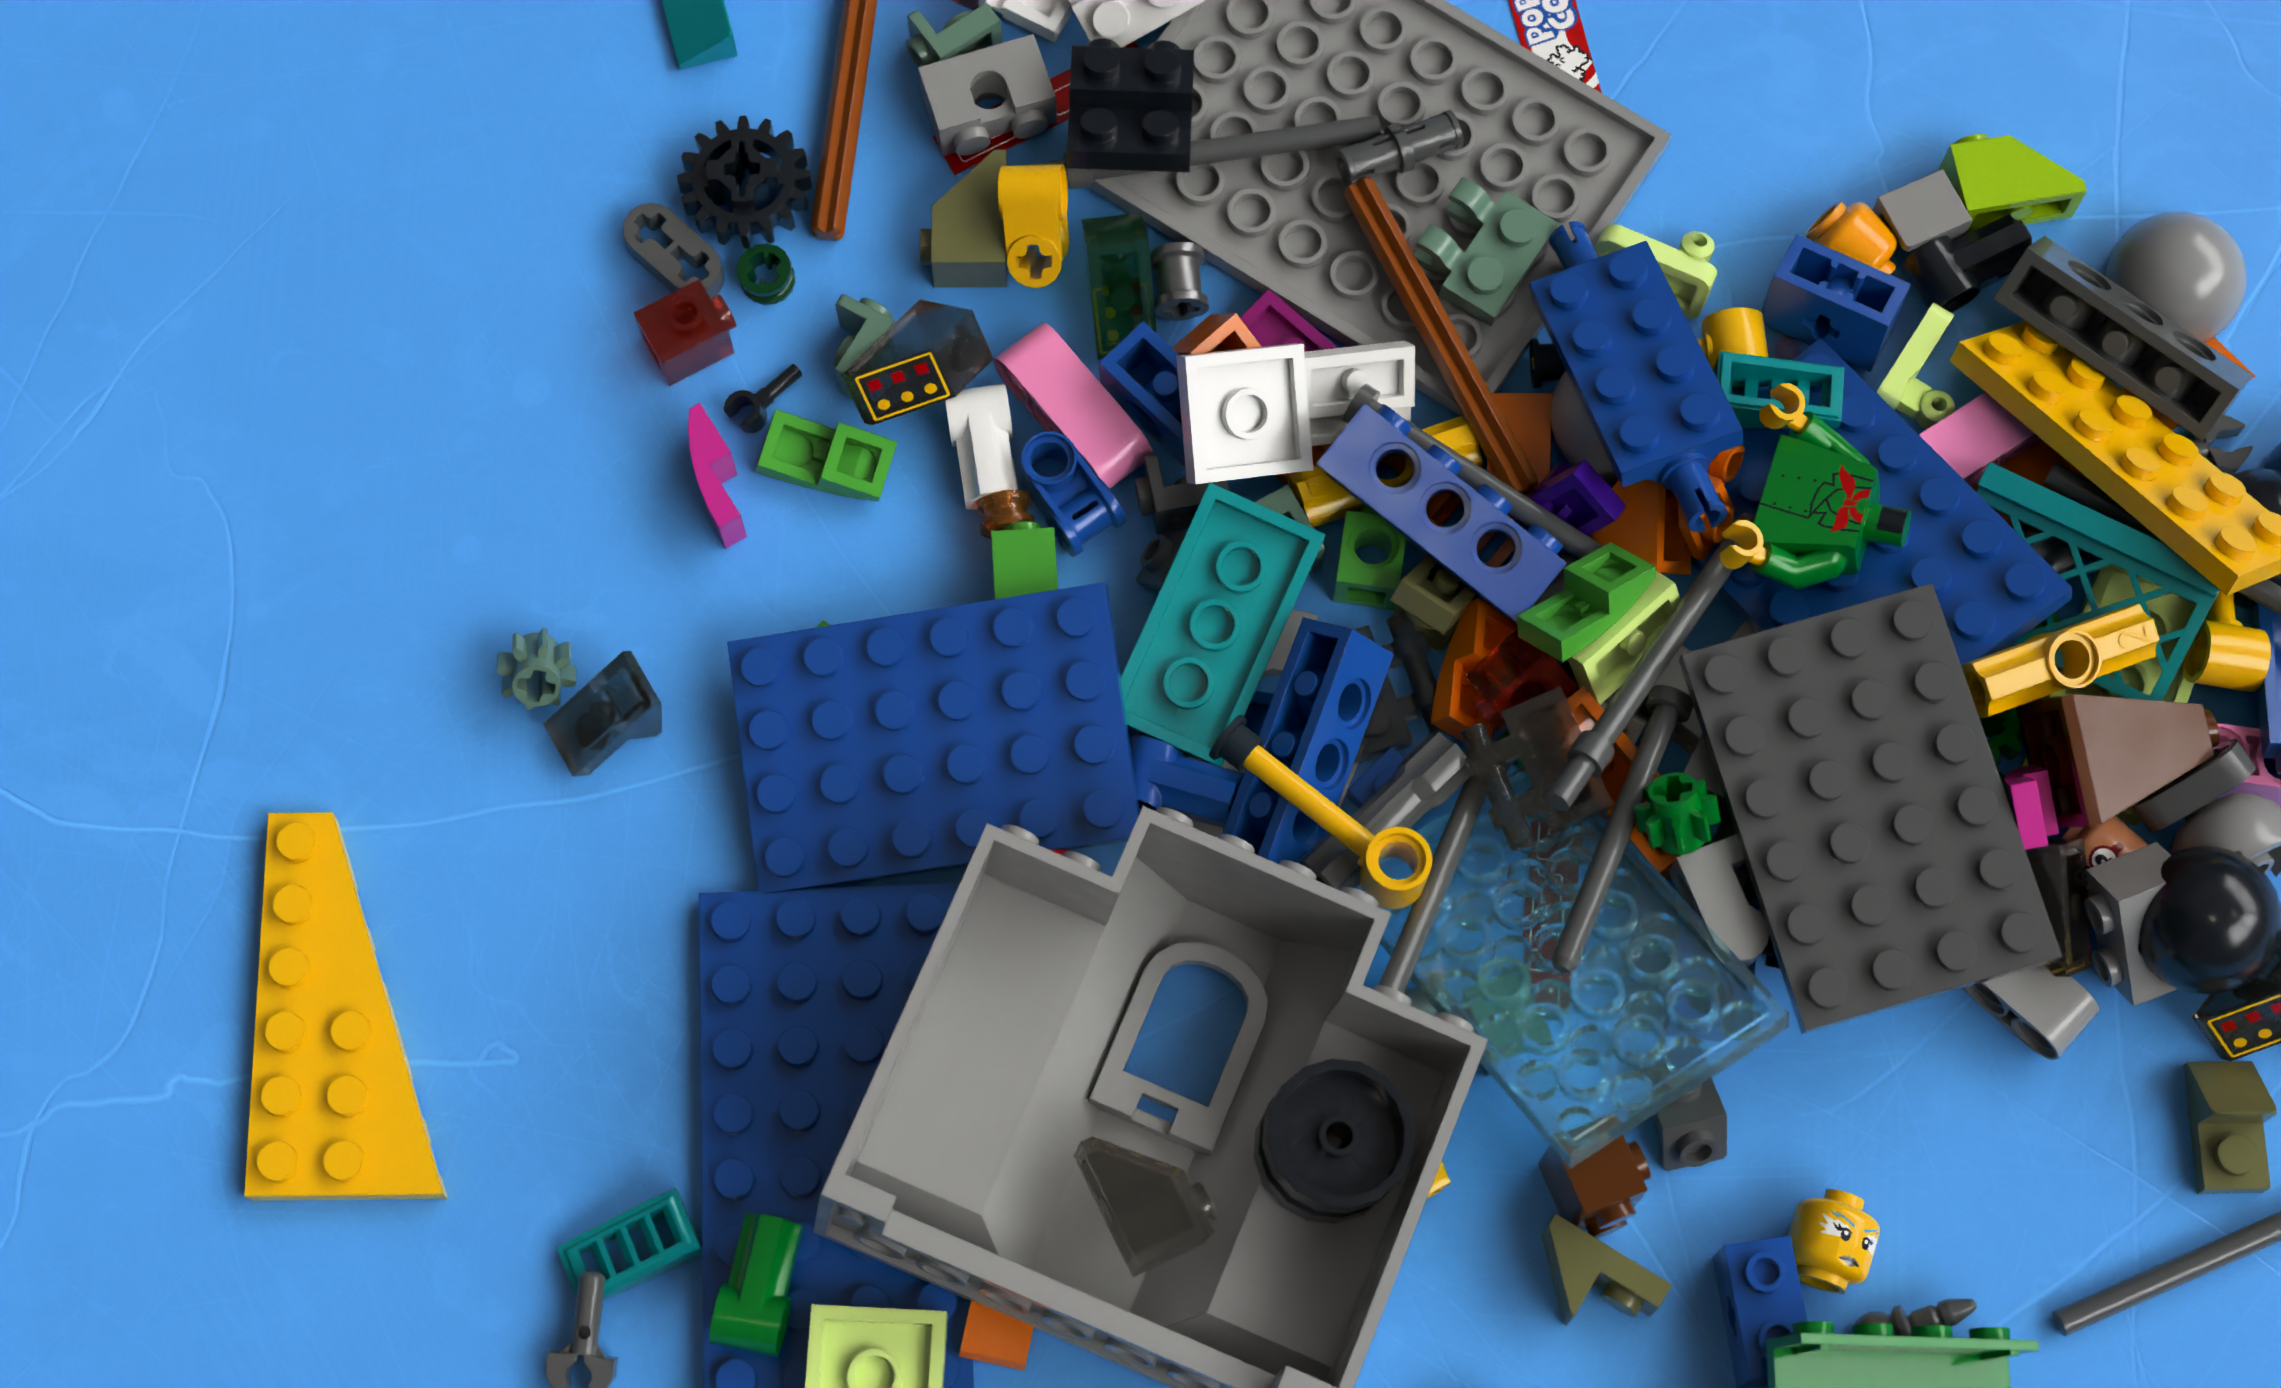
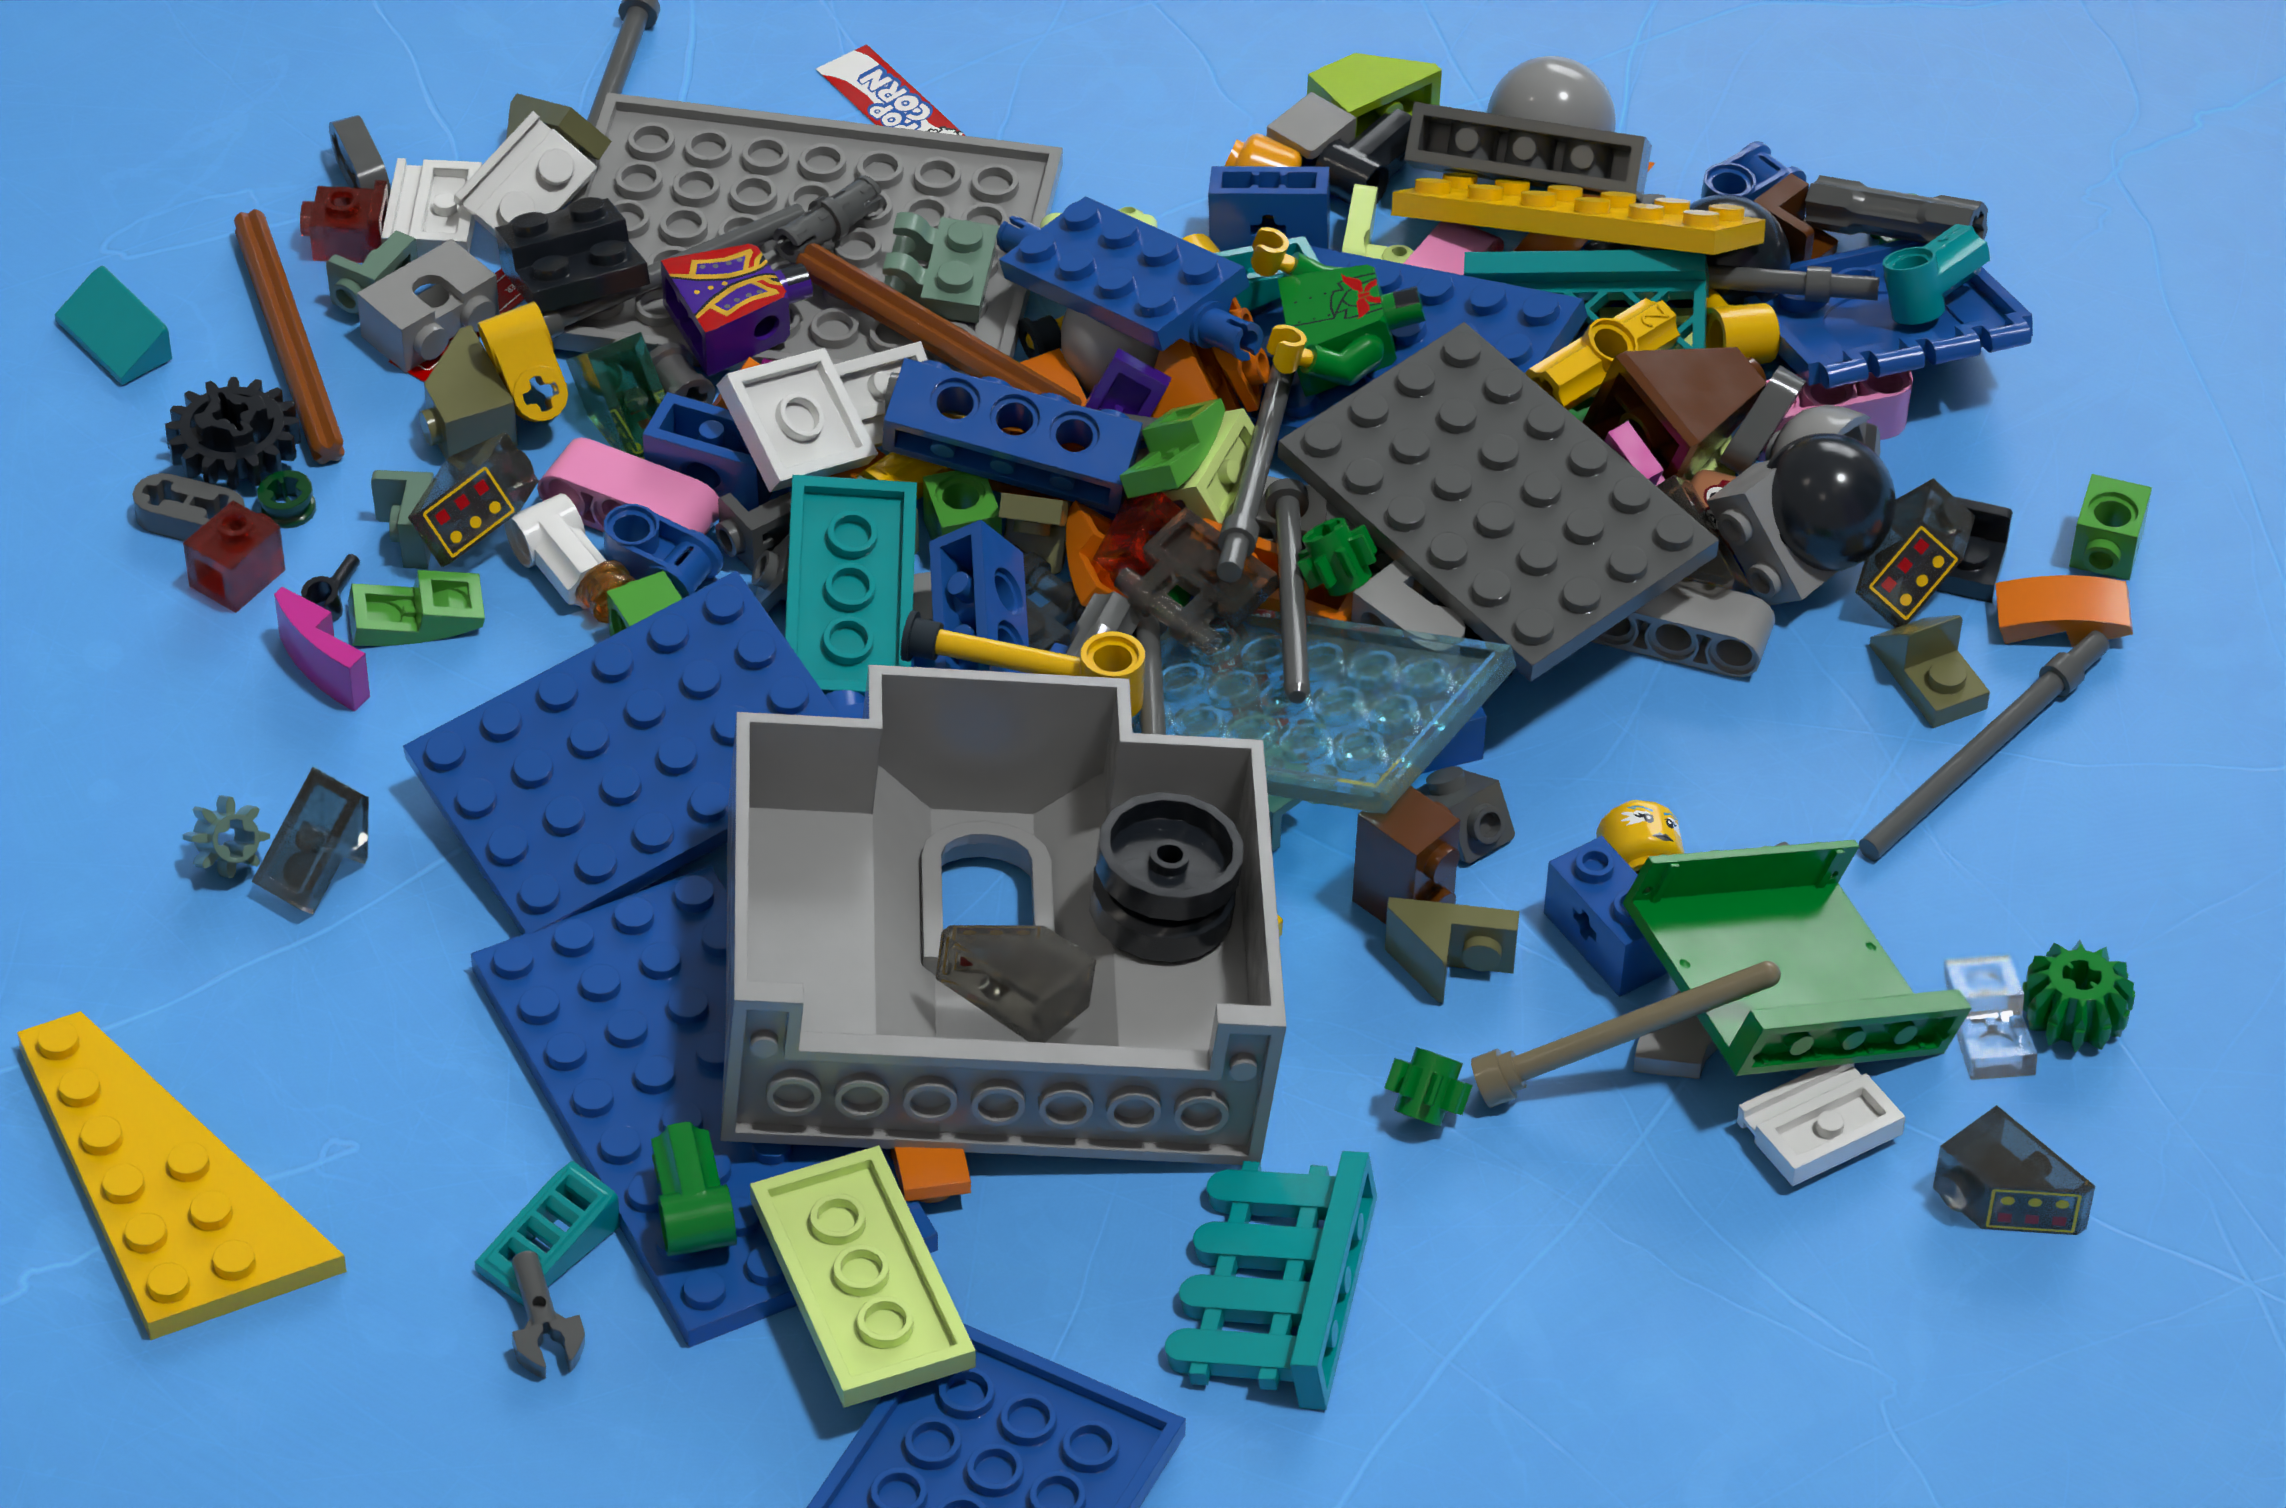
camera: 25 degrees left, 25 degrees down
(1260, 222) = (731, 303): none -> dark purple torso

